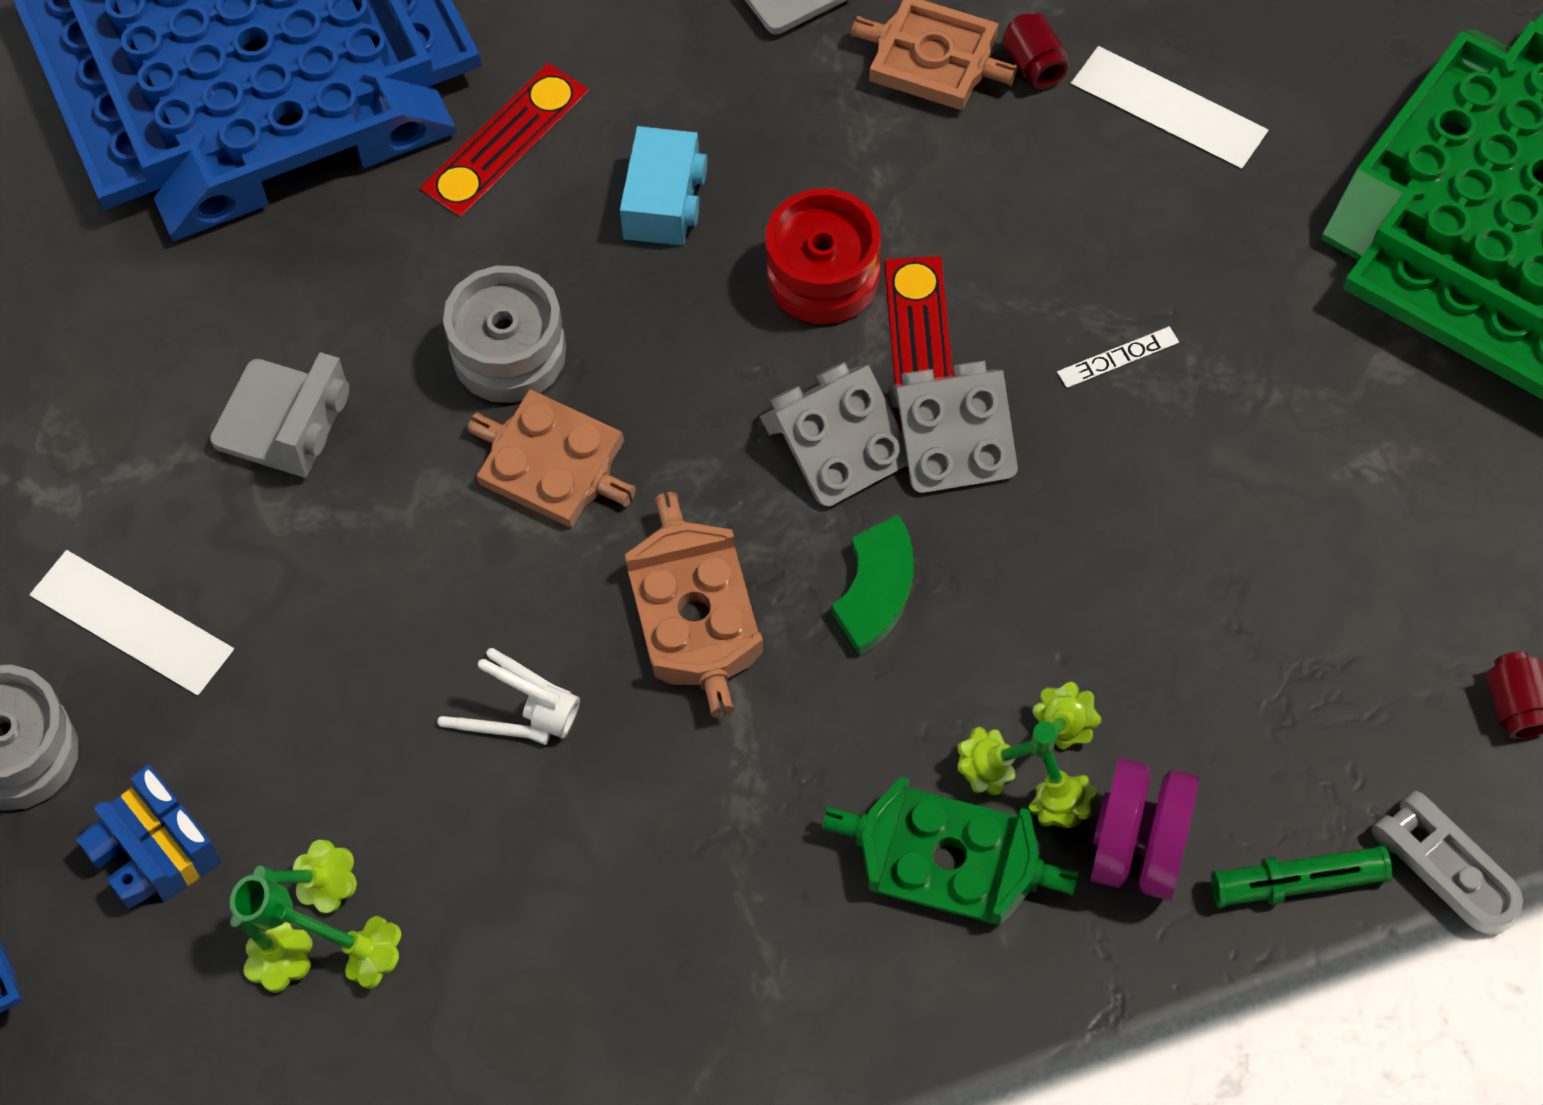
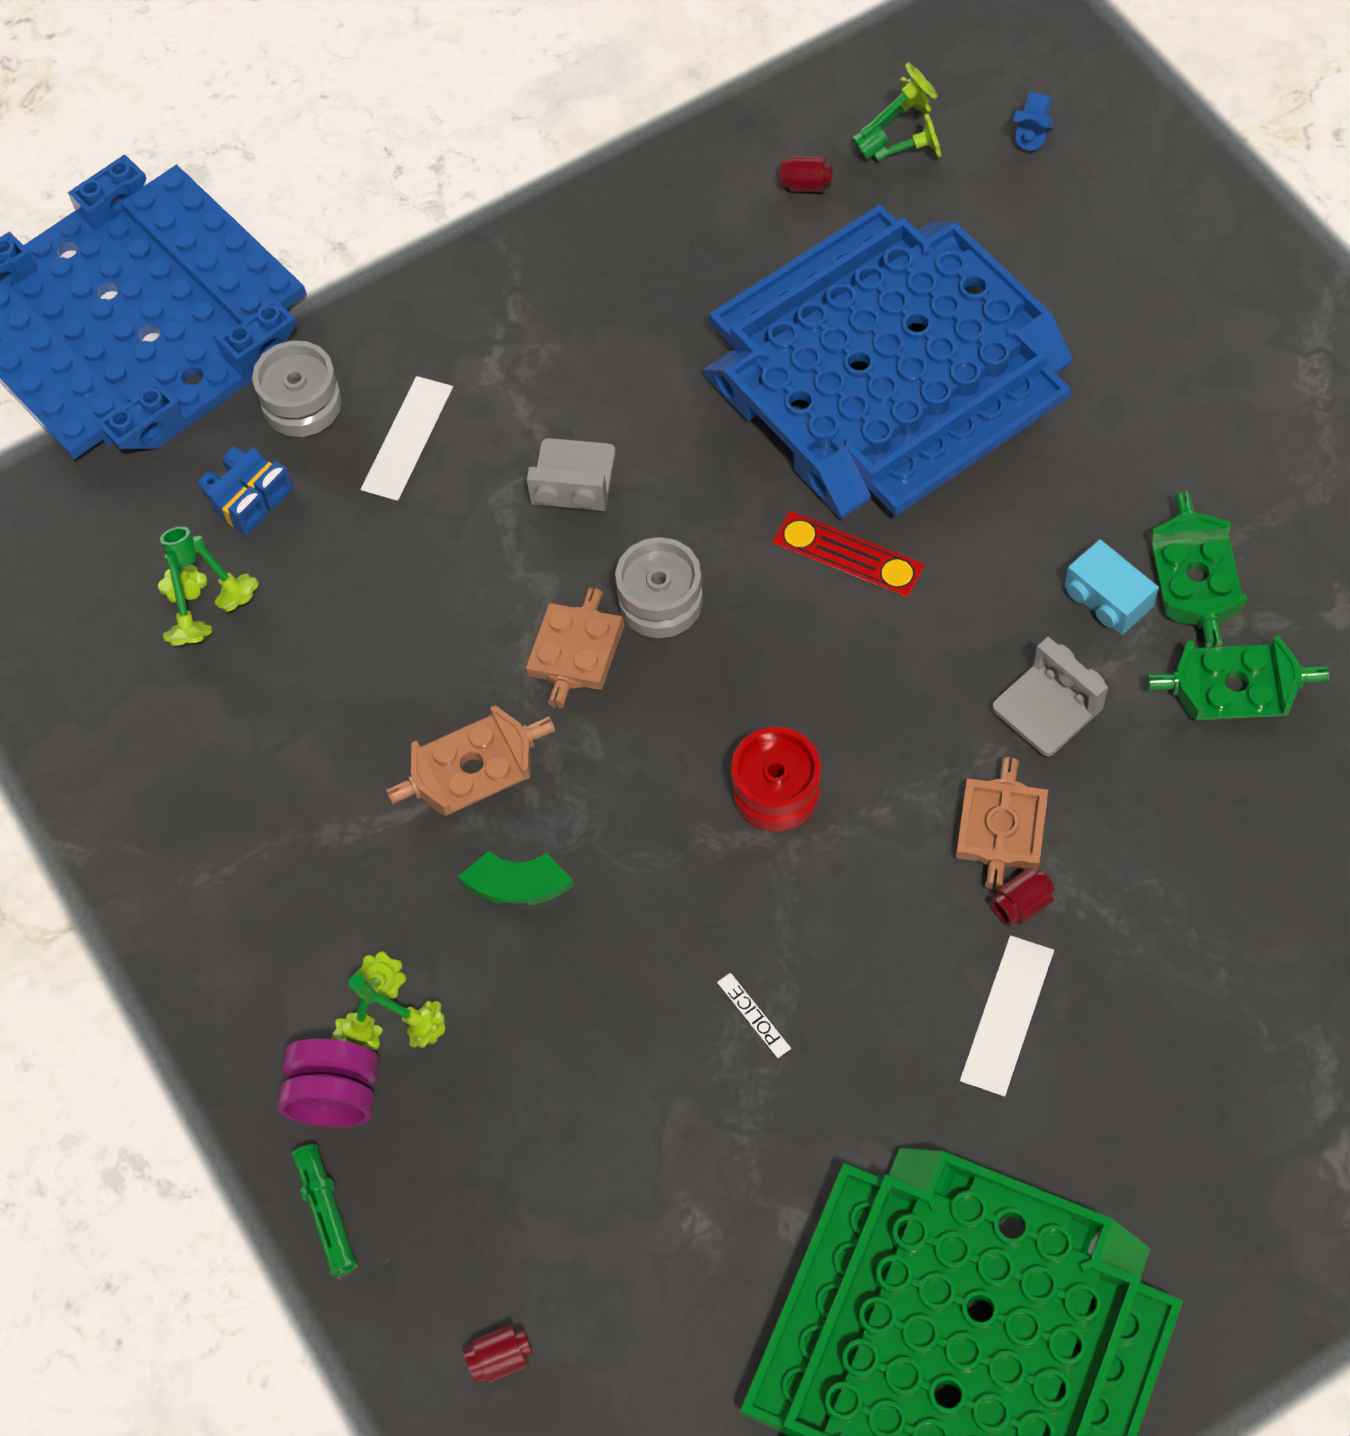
camera: 80 degrees right, 0 degrees up
(547, 706) = (375, 691): white plant -> none
(661, 186) = (820, 660): medium azure brick -> none
(839, 432) = (632, 824): light grey bracket -> none
(913, 824) = (301, 935): green plate -> none
(918, 317) = (734, 871): red sticker -> none
(955, 427) = (656, 901): light grey bracket -> none
(1451, 865) = (348, 1317): light grey plate -> none

